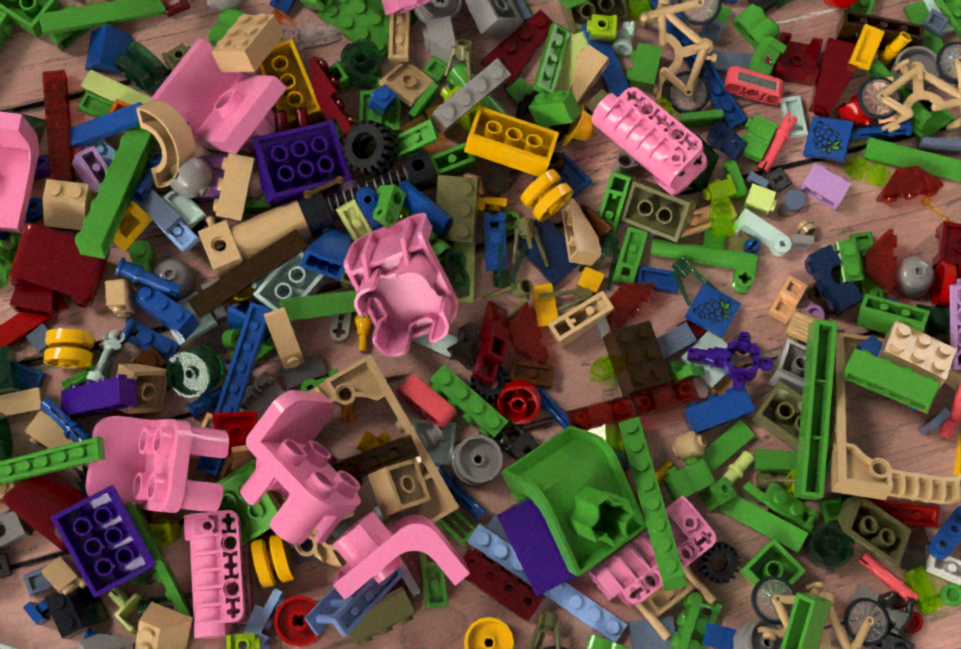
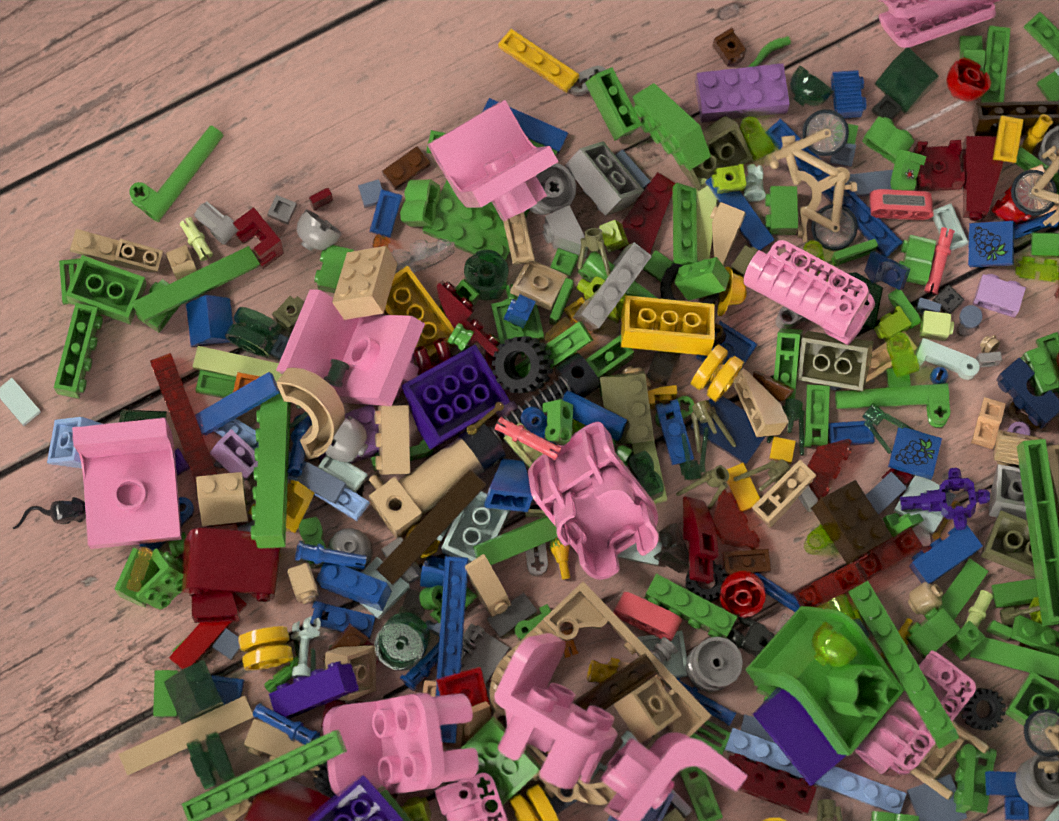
camera: 15 degrees left, 0 degrees up
(200, 117) = (336, 372): none -> bush
(320, 109) = (460, 336): none -> bright green wheel
(348, 207) = (519, 434): none -> coral pin
(483, 53) = (613, 235): none -> lime brick
(584, 469) = (832, 647): none -> clear neon green cylinder

